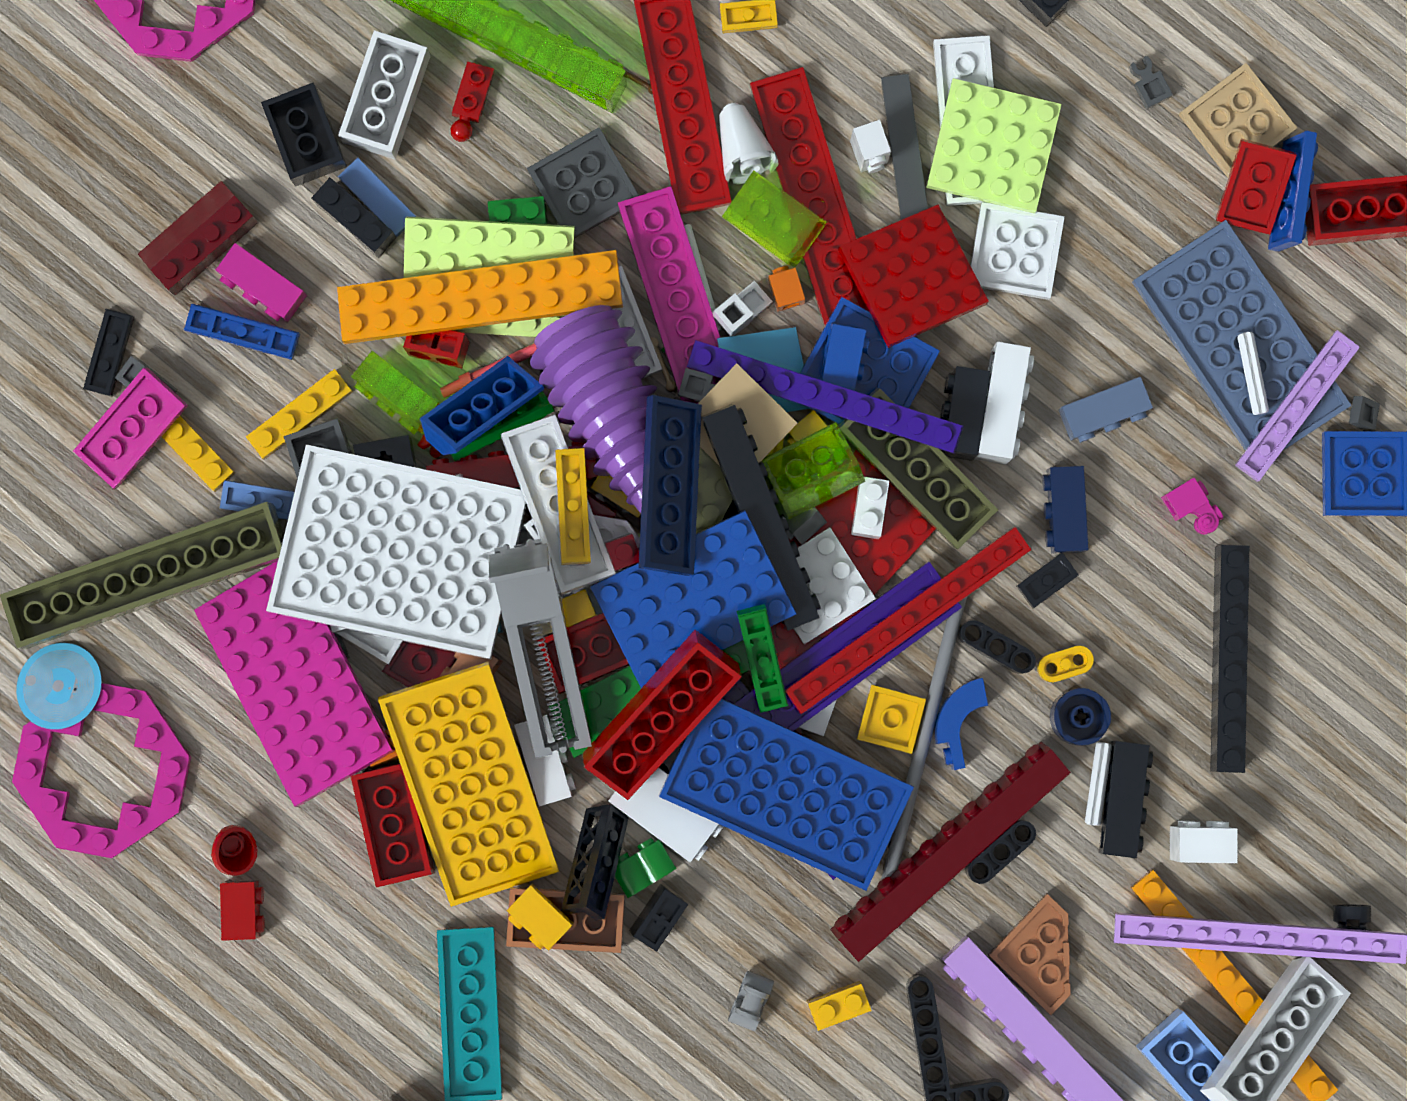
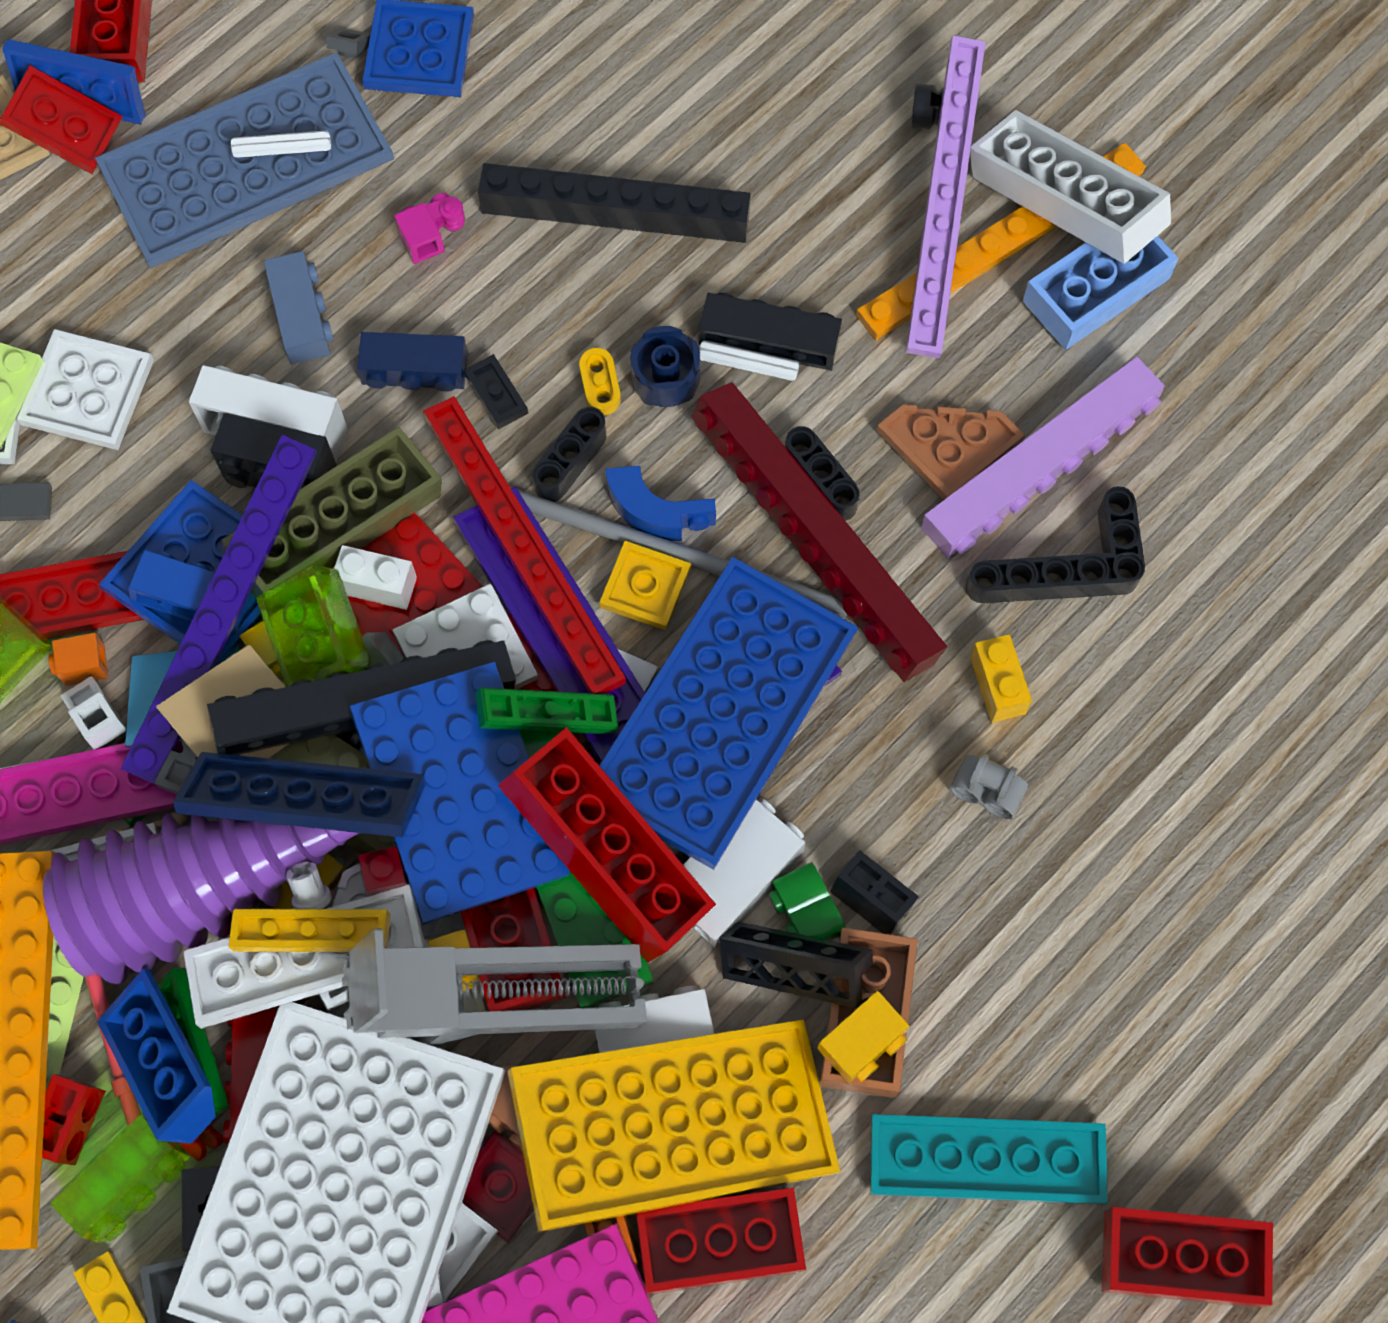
camera: 85 degrees left, 15 degrees down
(604, 500) = (307, 887): none -> white bush
(913, 275) = (90, 501): red plate -> none
(1203, 844) = (828, 246): white brick -> none
(1297, 406) = (328, 101): lavender plate -> none

